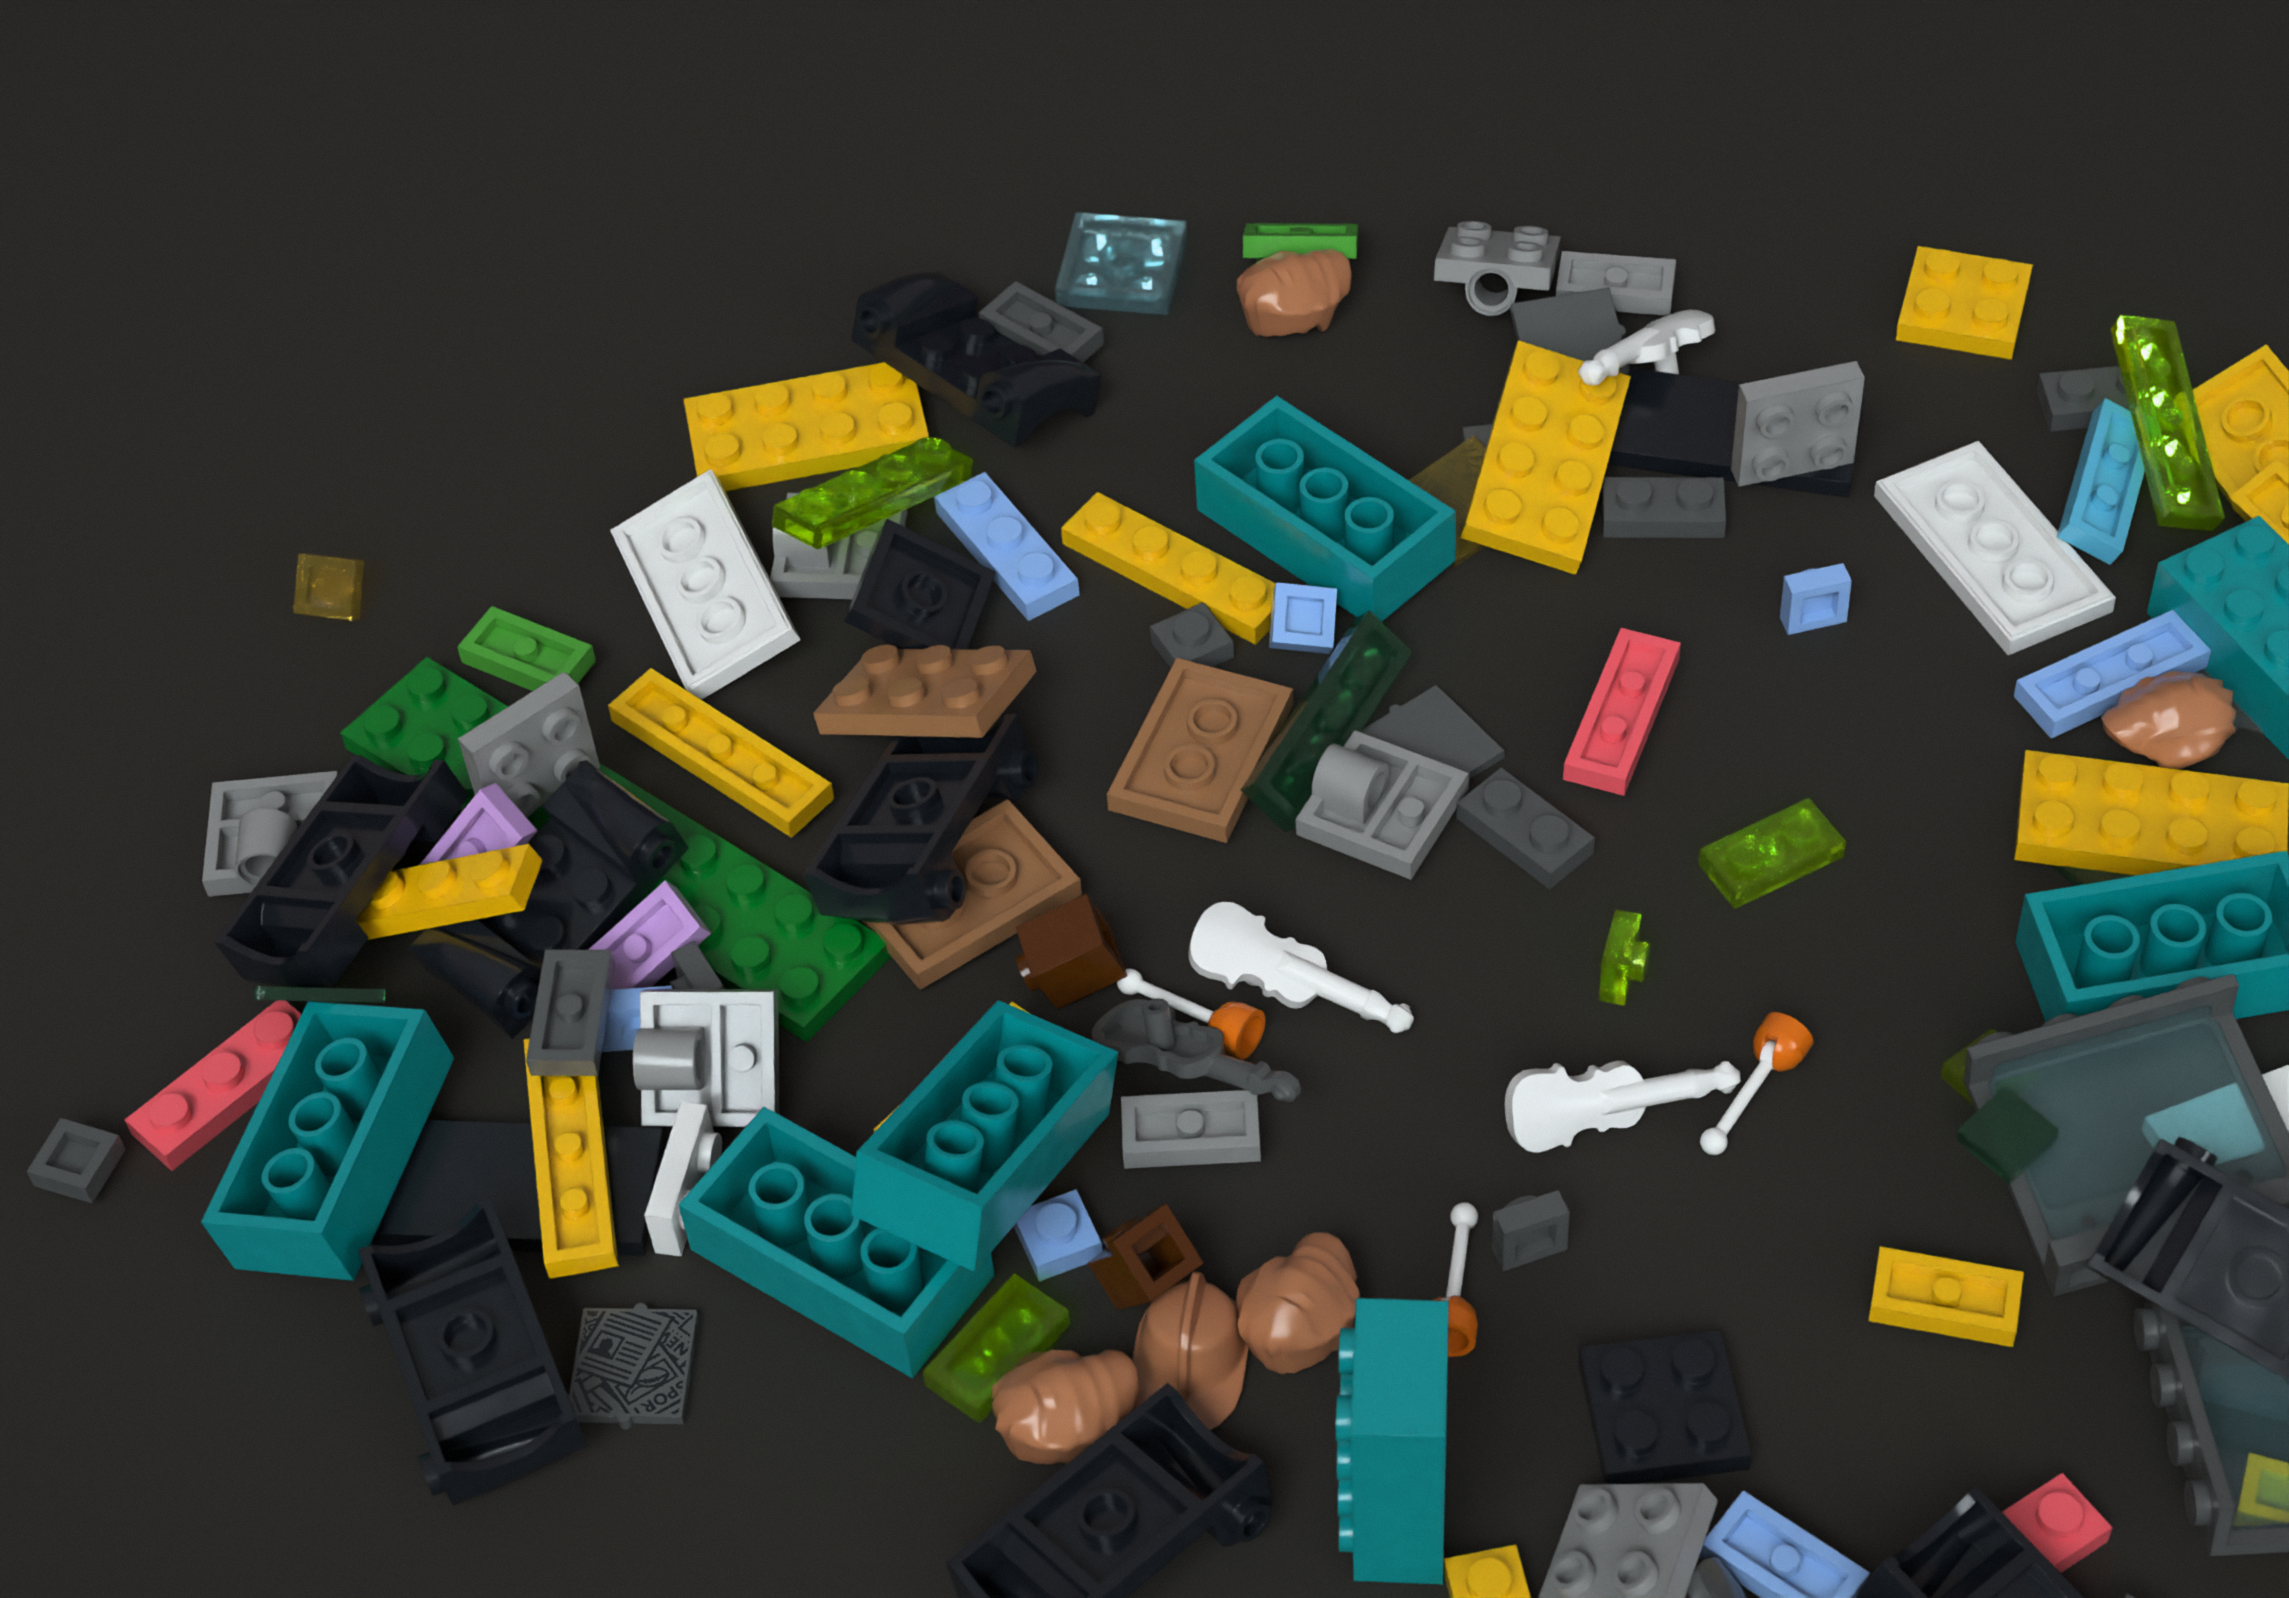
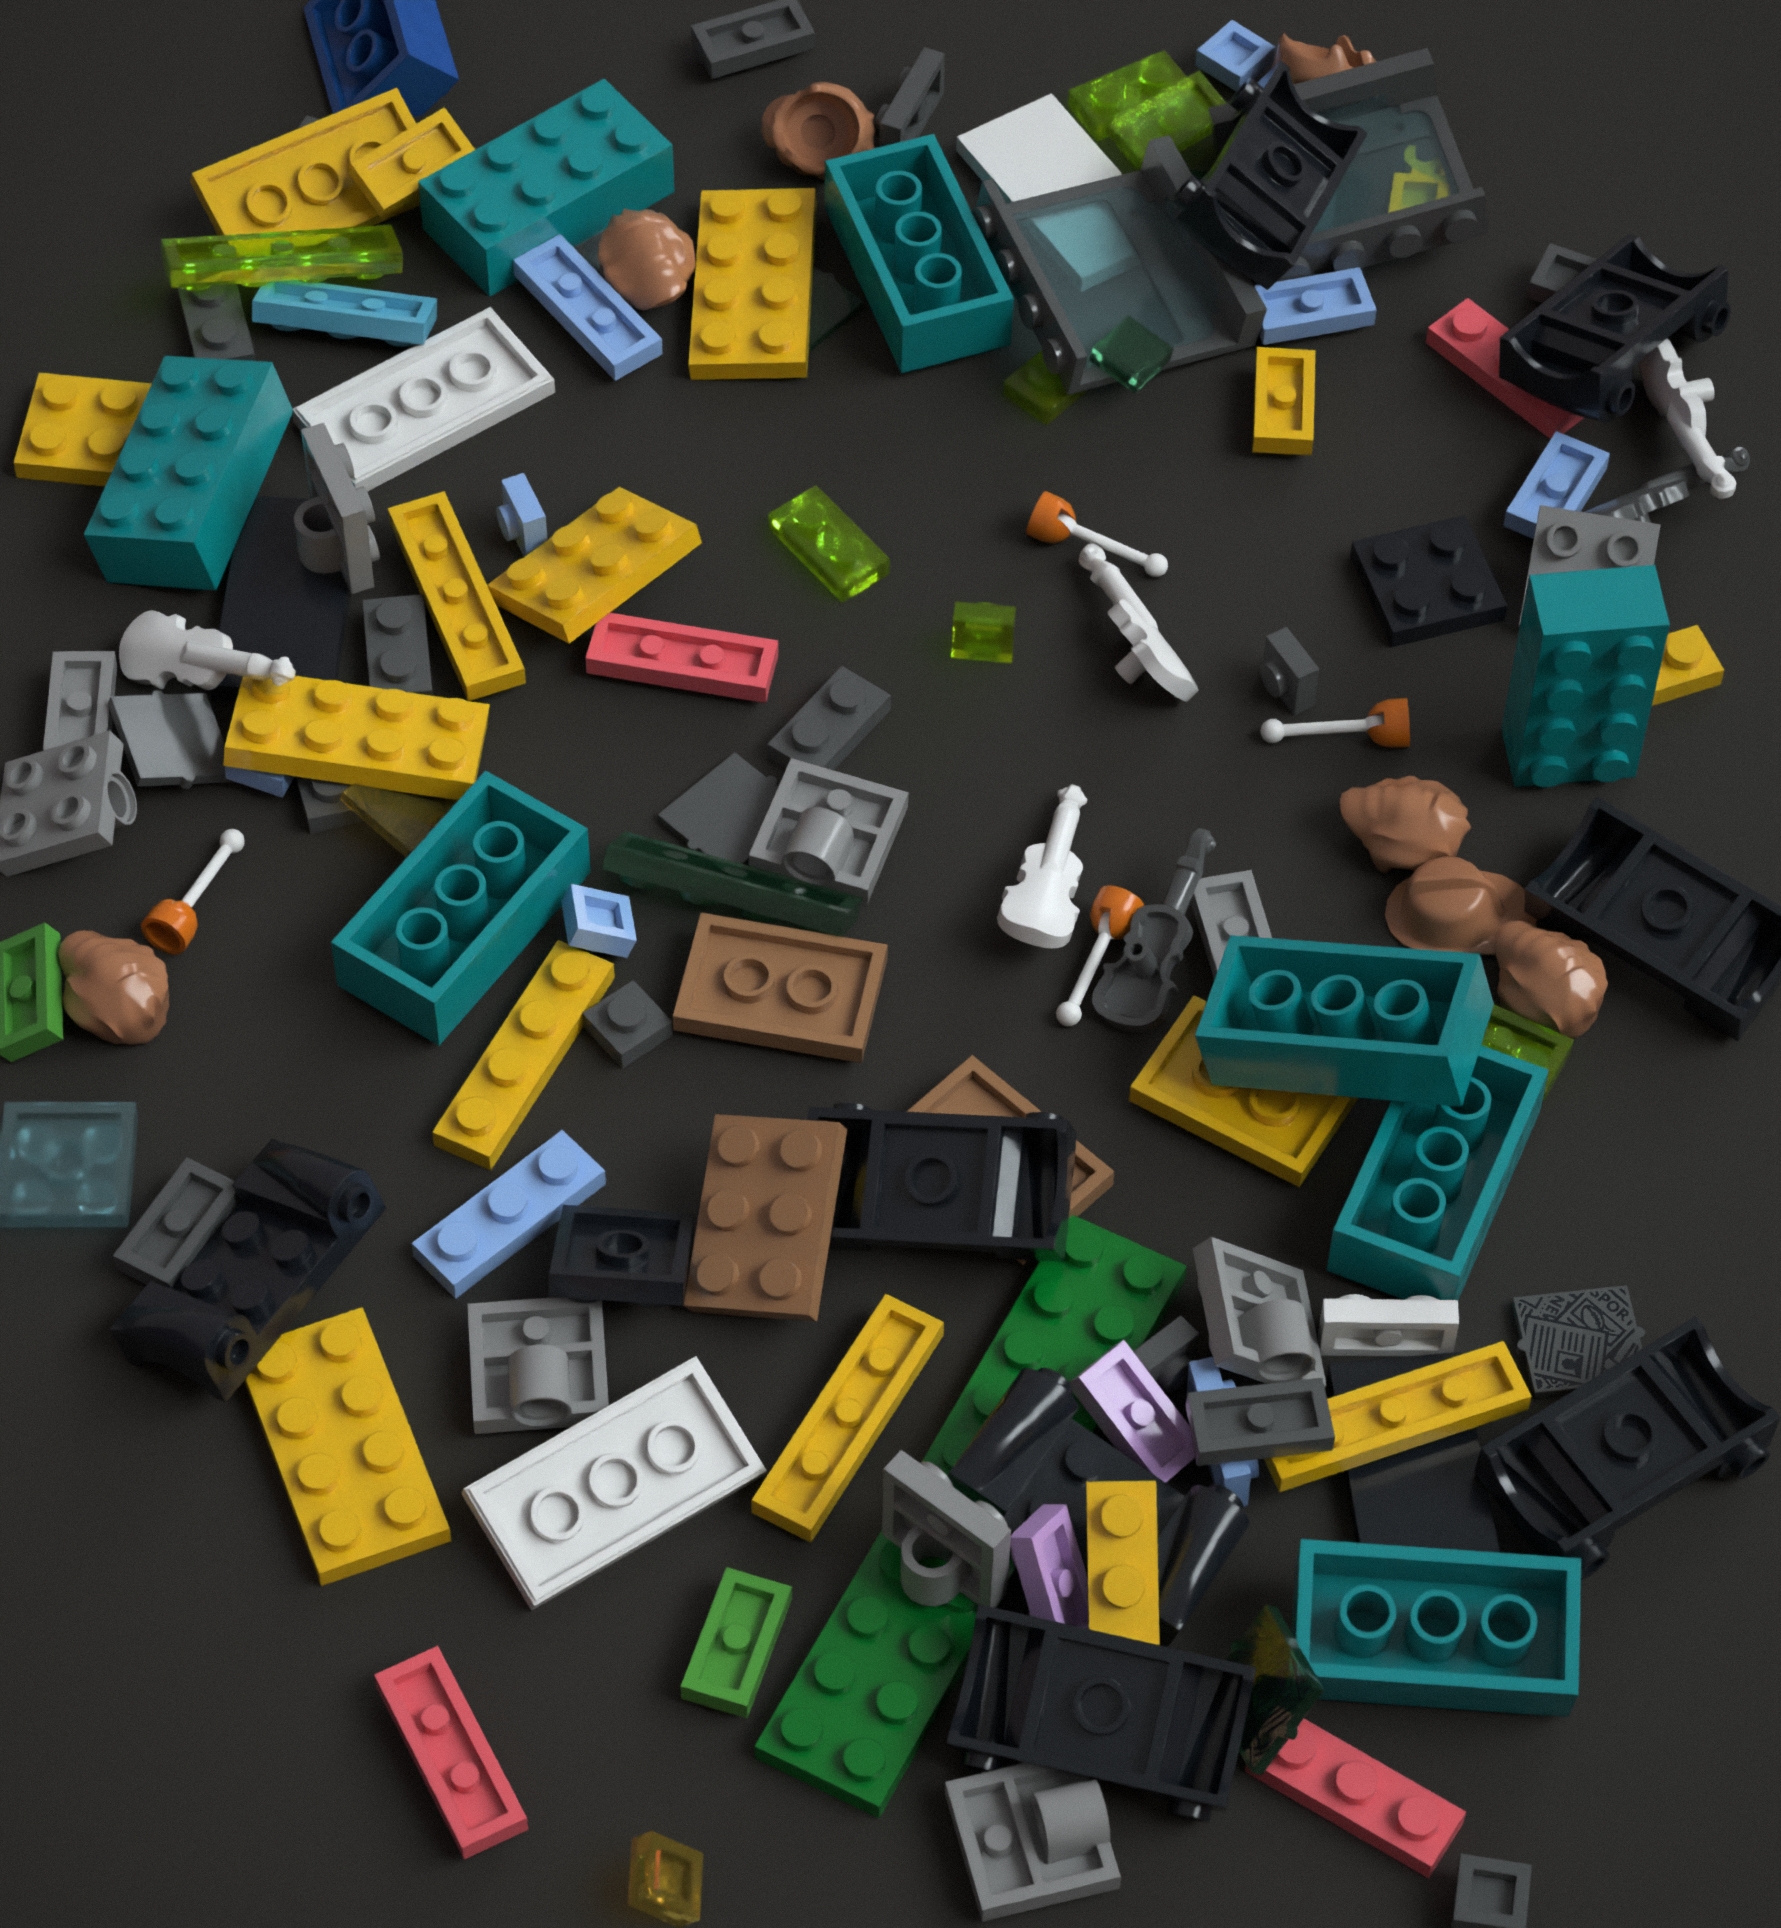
camera: 105 degrees left, 5 degrees up
(495, 468) = (451, 1752): none -> coral plate
(872, 492) = (490, 1313): clear neon green plate -> none
(1069, 952) = (1066, 1046): reddish brown brick -> none
(1144, 1258) = (1406, 914): reddish brown brick -> none
(1363, 336) = (174, 923): none -> orange hinge
(1722, 545) = (456, 596): none -> yellow plate
(1747, 647) = (594, 564): none -> yellow plate
(1916, 351) = (189, 473): none -> teal brick
(2101, 1352) = (1316, 306): none -> light blue plate

